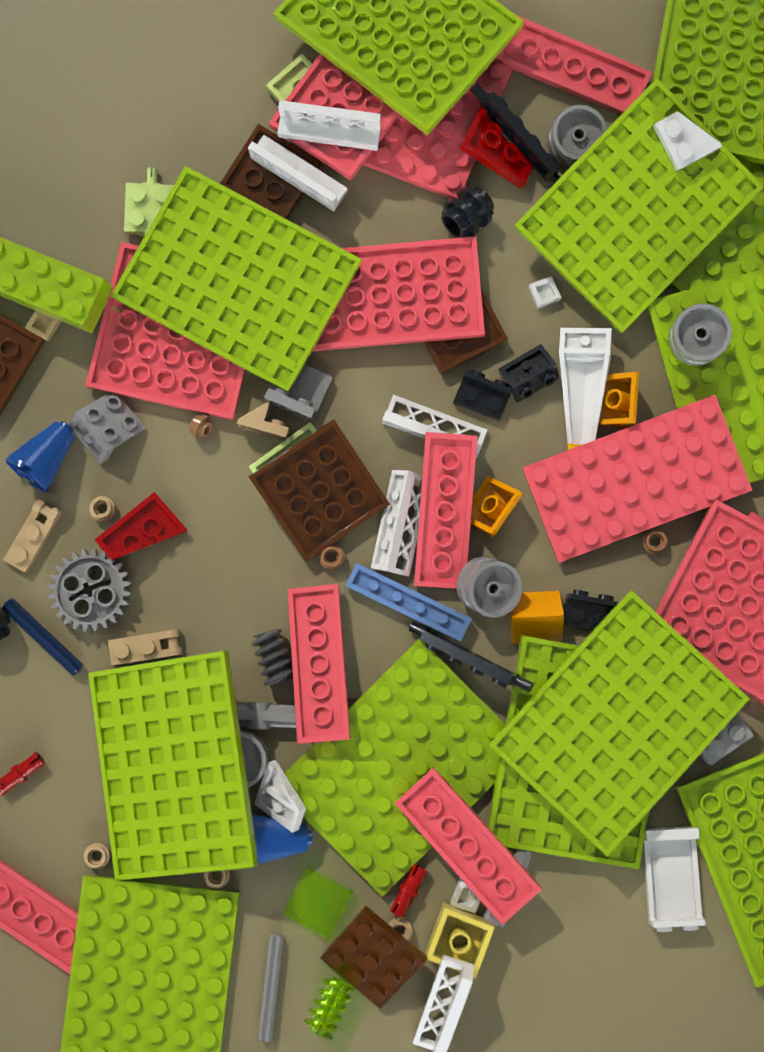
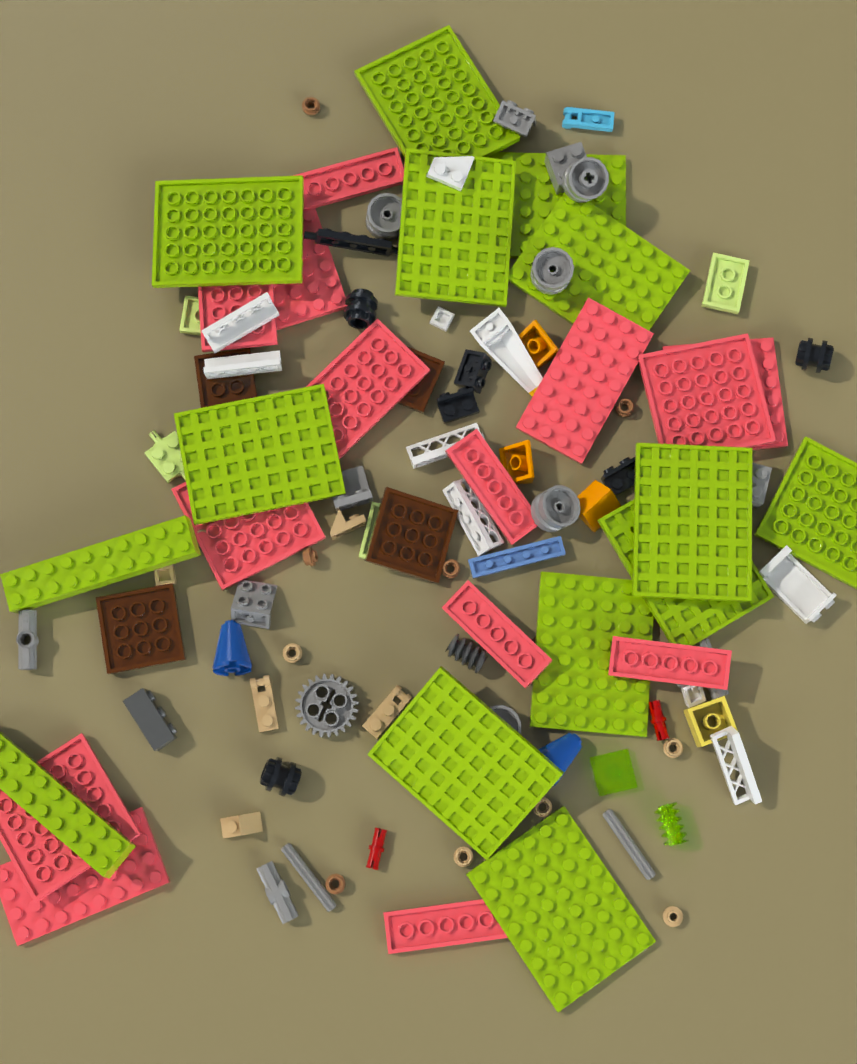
camera: 45 degrees left, 5 degrees down
(42, 636) = (321, 757): dark blue axle -> none
(140, 528) = (325, 644): red wing -> none
(264, 715) = (491, 690): light grey piece -> none
(279, 798) = (541, 728): white wing -> none
(373, 957) = (671, 773): reddish brown plate -> none
(478, 664) = (587, 556): black plate -> none
(492, 149) = (345, 262): red wing -> none

